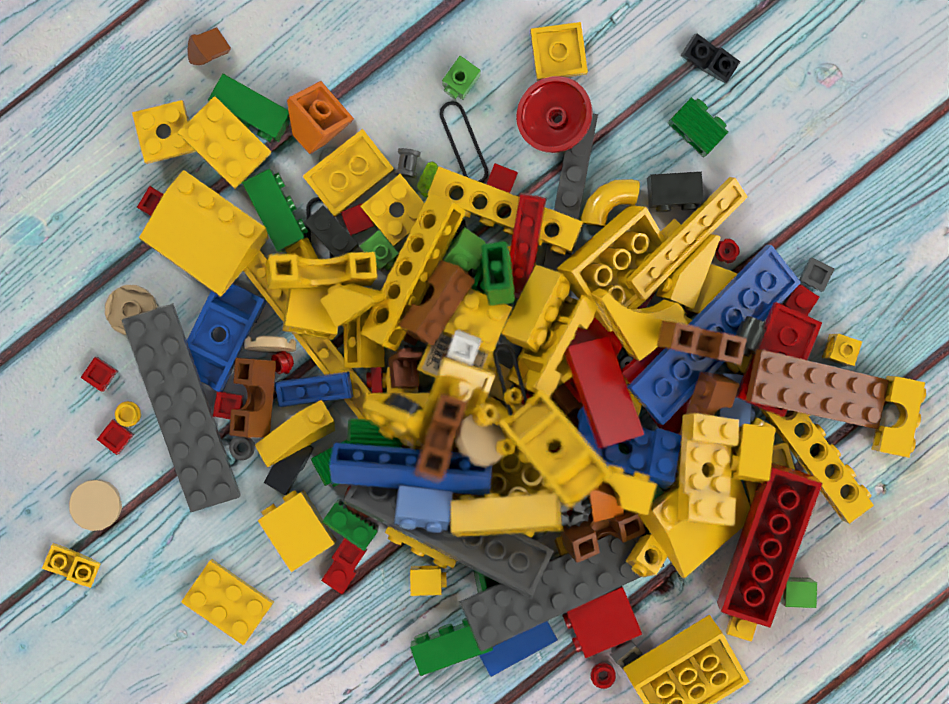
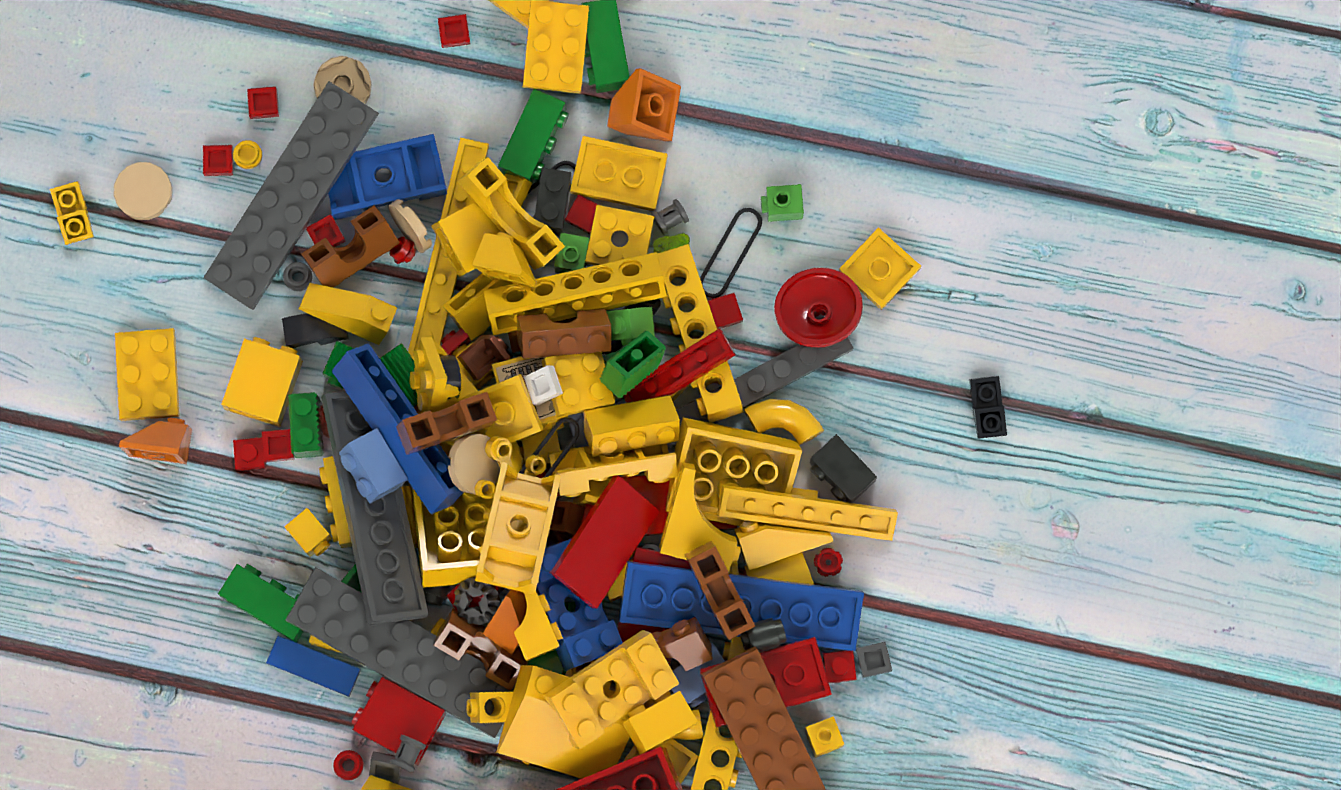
camera: 50 degrees right, 10 degrees down
(203, 233) = (461, 92): yellow slope -> none
(283, 631) = (160, 442): none -> orange slope
(313, 389) = (401, 294): blue tile -> none
(506, 514) = (425, 539): yellow brick -> none
(634, 637) = (407, 753): none -> dark grey bush
(698, 126) = (916, 444): green brick -> none

